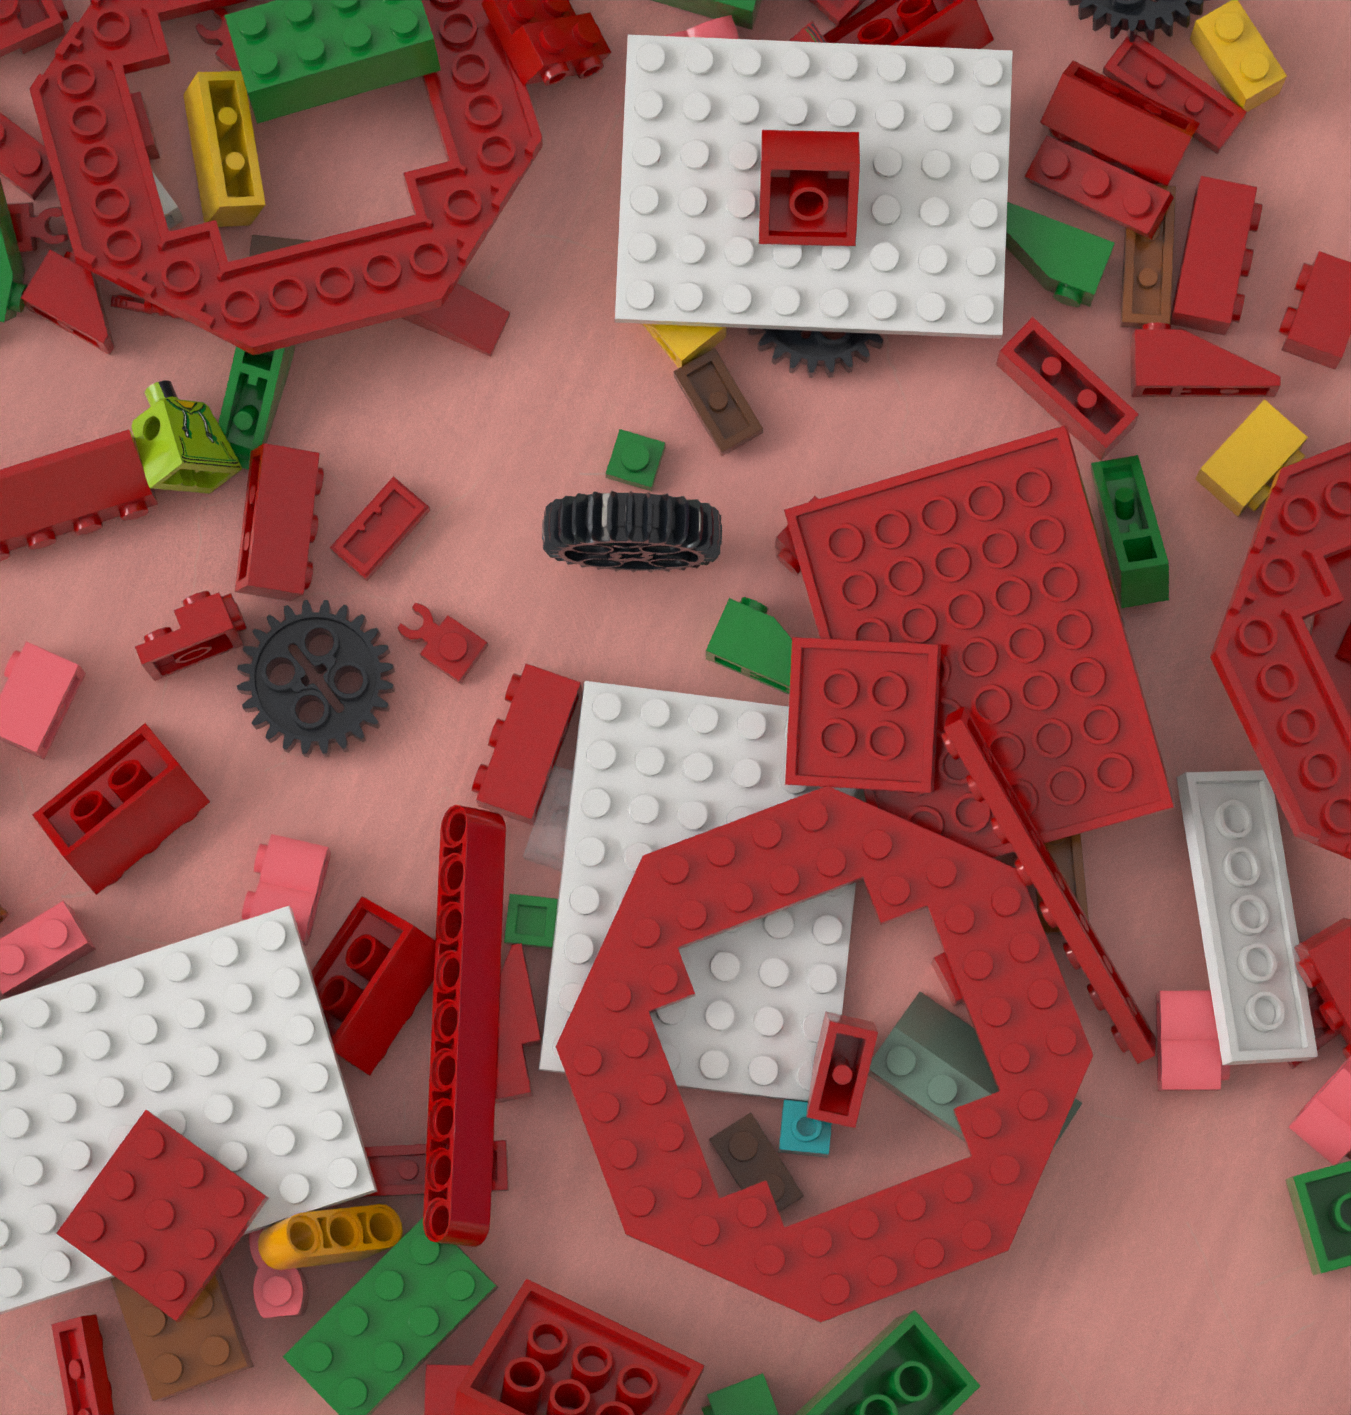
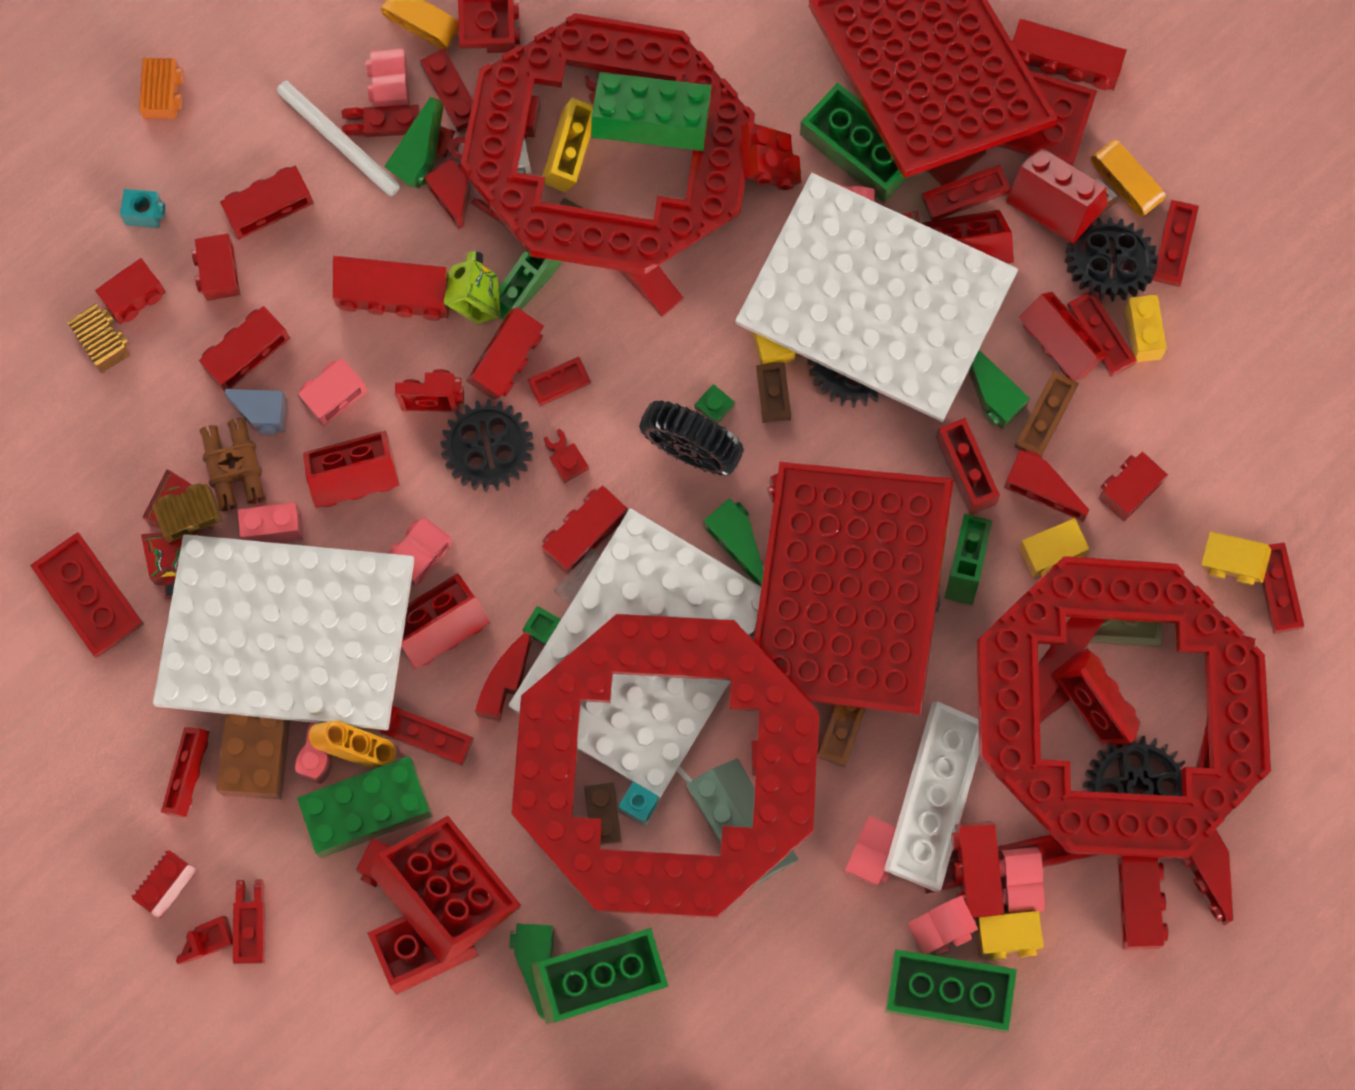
camera: 25 degrees right, 5 degrees down
(162, 1216) = (266, 690): red plate -> none
(464, 1027) = (477, 664): red beam -> none
(809, 187) = (871, 293): red slope -> none
(841, 1069) = (671, 778): red slope -> none
(863, 714) = (772, 590): red plate -> none
(1058, 902) = (833, 739): red plate -> none
(1099, 187) = (1036, 365): red plate -> none
(1215, 256) = (1084, 430): red brick -> none

